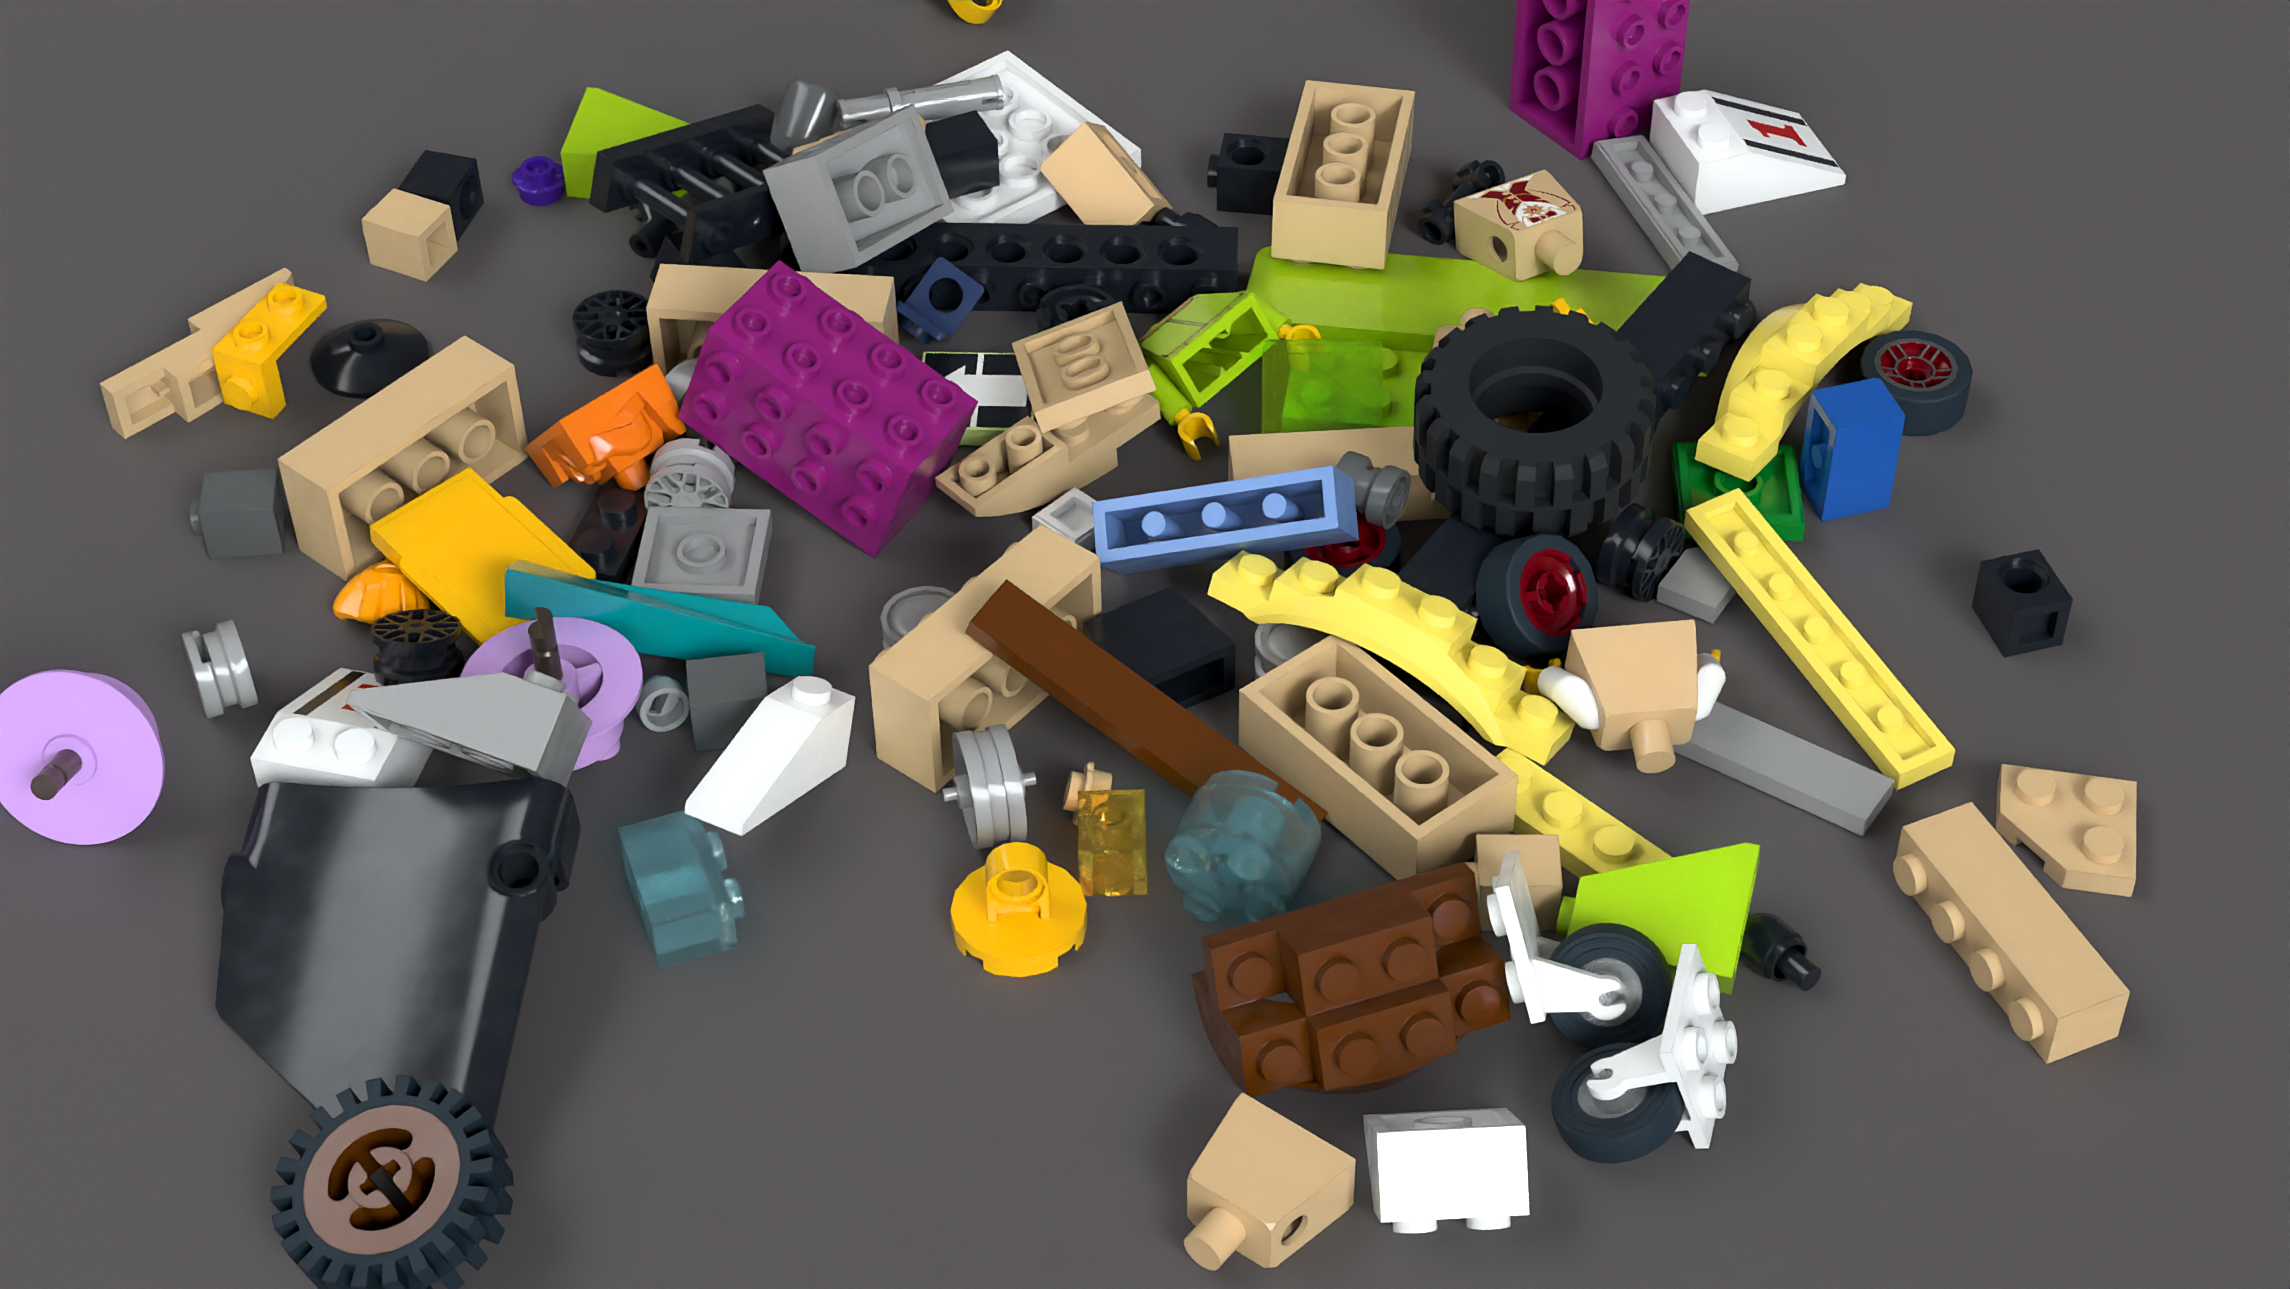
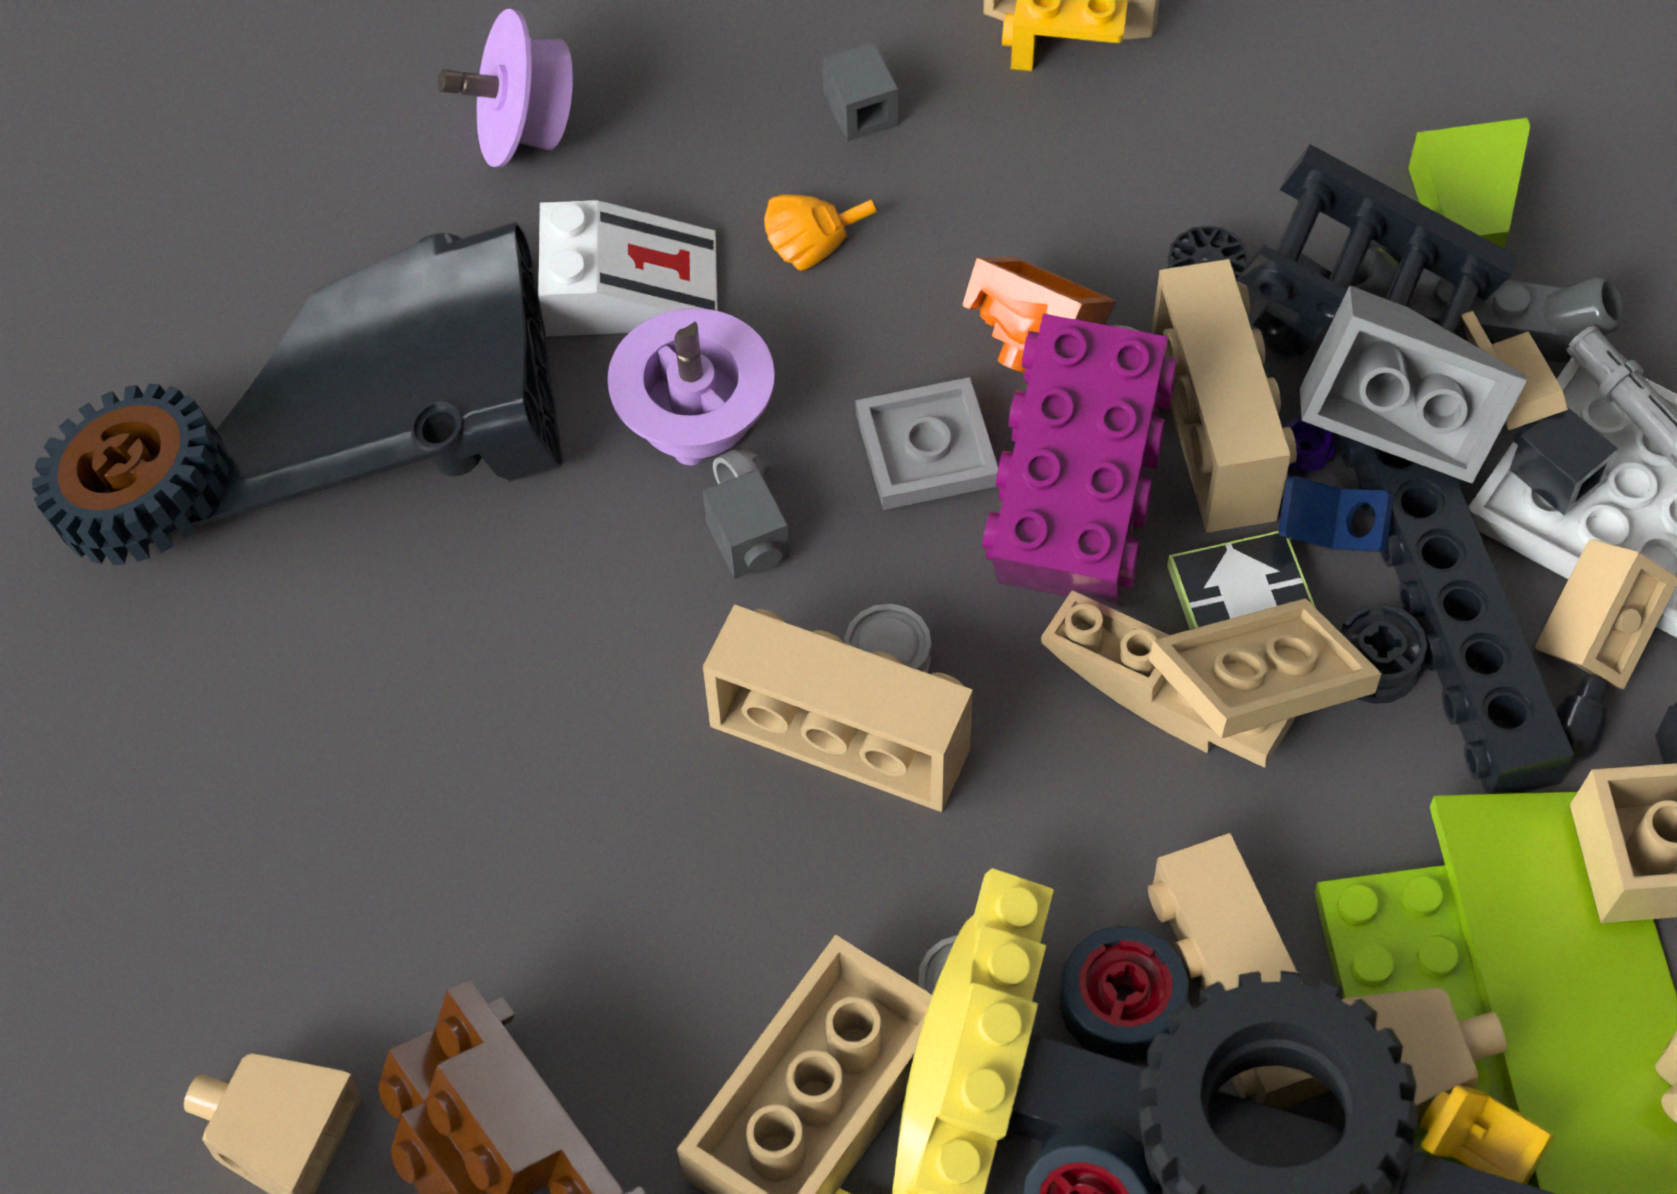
camera: 75 degrees right, 15 degrees up
(220, 669) = (662, 148): light grey wheel -> none
(367, 356) = (1114, 106): black dish -> none
(398, 445) = (945, 171): tan brick -> none
(409, 234) = (1271, 67): tan brick -> none
(417, 646) = (729, 275): black wheel -> none
(450, 181) = (1339, 69): black brick -> none
(461, 542) = (840, 292): yellow piece -> none
(486, 719) = (568, 341): light grey slope -> none
(539, 181) = (1400, 134): dark purple plate -> none
(611, 532) = (939, 358): black plate -> none
(660, 620) = (815, 424): teal wedge -> none
(680, 887) = (515, 559): clear light blue brick -> none
(690, 476) = (995, 392): light grey wheel -> none
(777, 756) = (657, 576): white slope -> none
(989, 786) = (677, 759): light grey wheel -> none
(1018, 912) = (566, 837): yellow tile -> none
(1070, 517) = (1098, 737): white tile -> none
(1089, 780) = (717, 849): tan plate -> none
(1111, 694) = (772, 862): reddish brown tile -> none
(1112, 856) = (656, 887): clear yellow brick -> none
(1168, 646) = (913, 855): black torso -> none
(1204, 349) = (1361, 775): lime torso -> none
(1225, 518) = (1078, 864): medium blue brick -> none
(1241, 849) = (647, 996): clear light blue brick -> none
(1321, 385) = (1336, 906): clear neon green plate -> none
(1378, 491) = (1176, 977): dark grey wheel -> none

